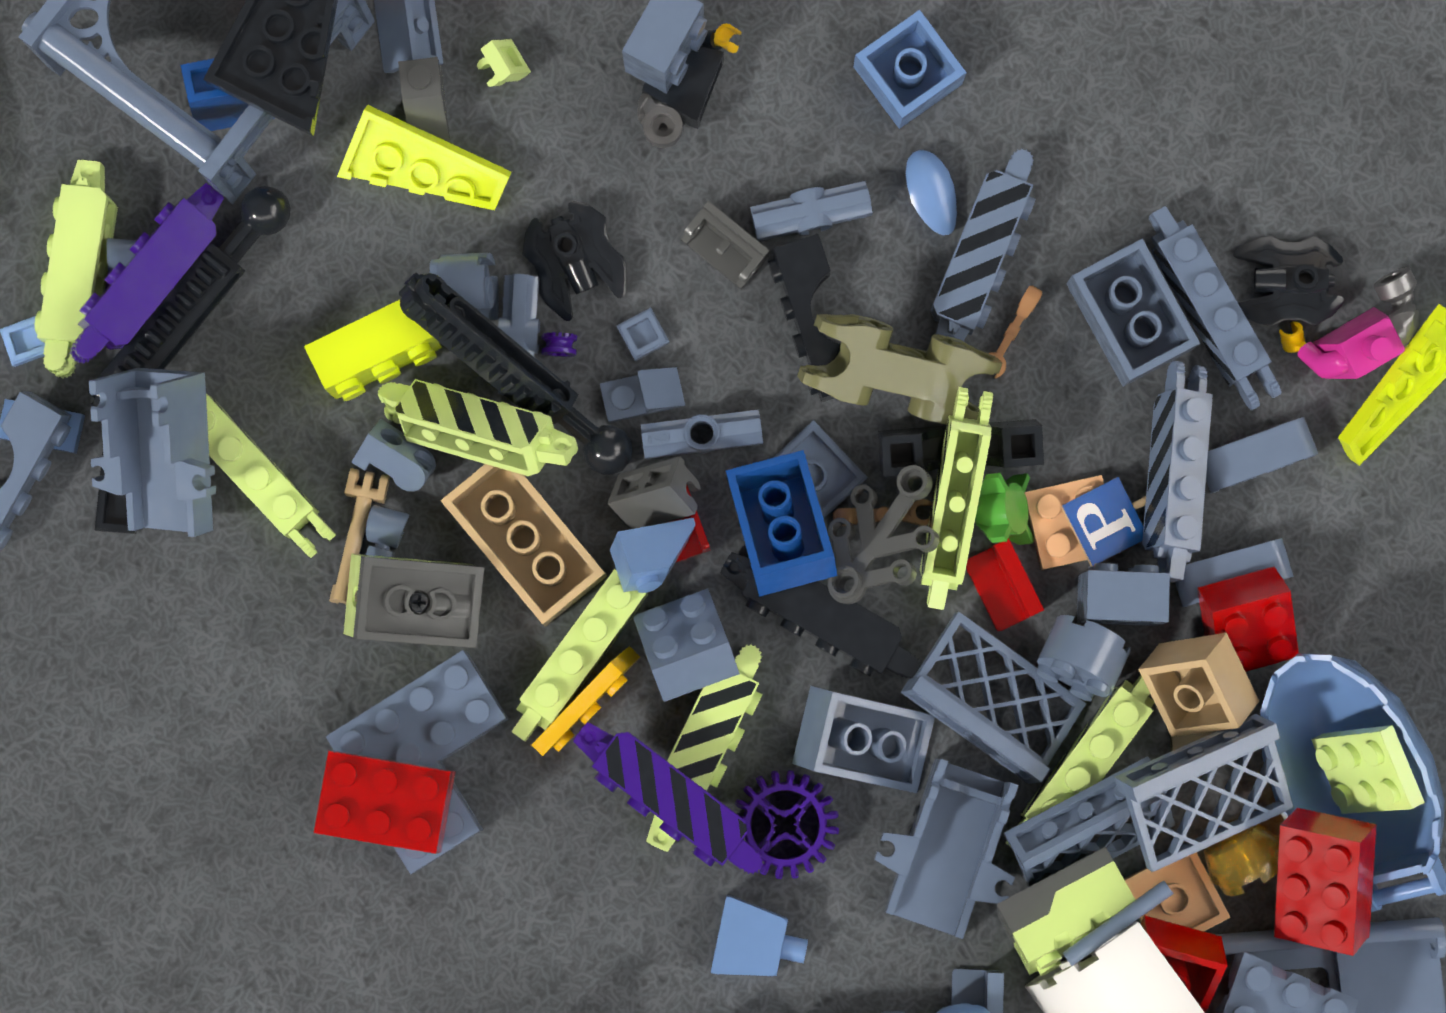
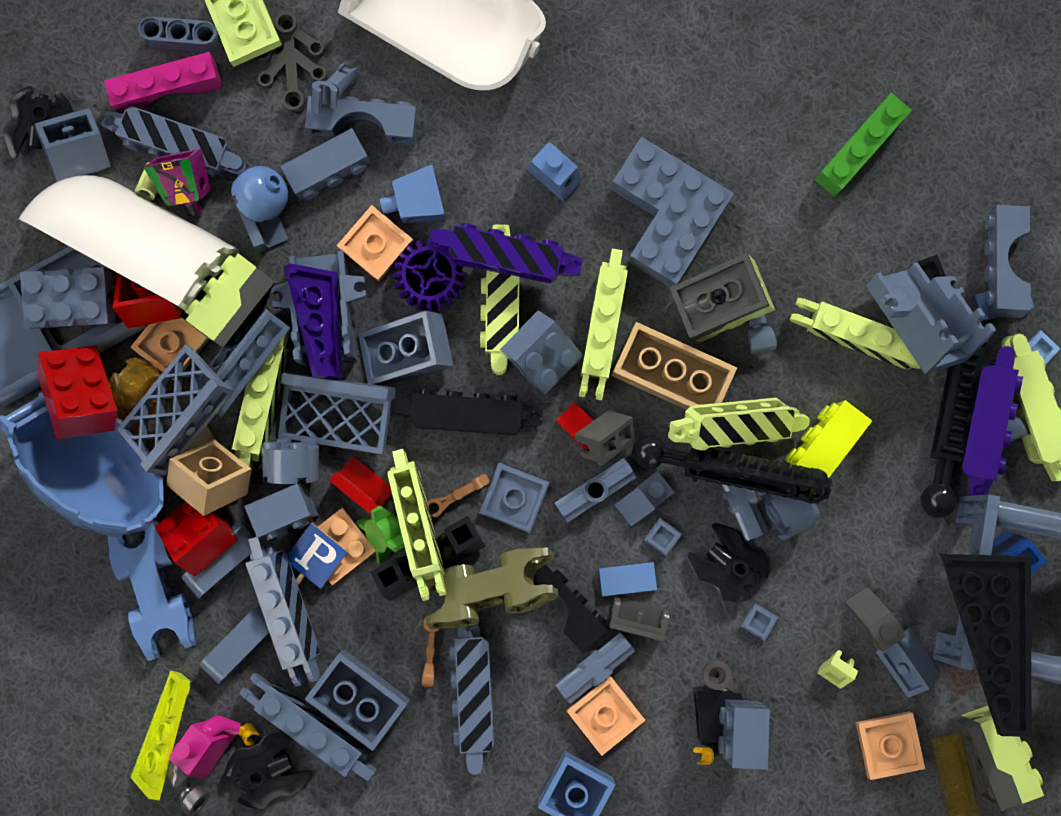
camera: 150 degrees right, 0 degrees up
(115, 722) = (863, 145): none -> bright green arch
(364, 496) = (782, 348): tan hinge -> none
(384, 802) = (678, 166): red brick -> none
(390, 452) = (777, 384): sand blue leg -> none
(409, 158) = (864, 578): neon yellow wing -> none
(549, 887) = (554, 170): none -> medium blue torso
(559, 345) = (711, 503): dark purple bush -> none
(572, 169) = (759, 621): none -> sand blue tile
(586, 704) = (585, 288): yellow wing -> none
(648, 553) = (591, 396): medium blue slope -> none
(714, 302) = (627, 579): none -> medium blue tile
(781, 523) = (518, 453): blue brick -> none
(826, 146) = (605, 715): none -> light nougat plate
(837, 904) = (375, 243): none -> light nougat plate
(877, 540) = (453, 472): dark grey plant -> none
(932, 191) = (523, 718): medium blue arm -> none
(959, 836) = (317, 311): none -> dark purple wing
(1117, 923) = (192, 301): sand blue bar -> none
(1340, 556) = (155, 601): none -> medium blue piece
(1367, 770) = (76, 471): yellowish green plate -> none

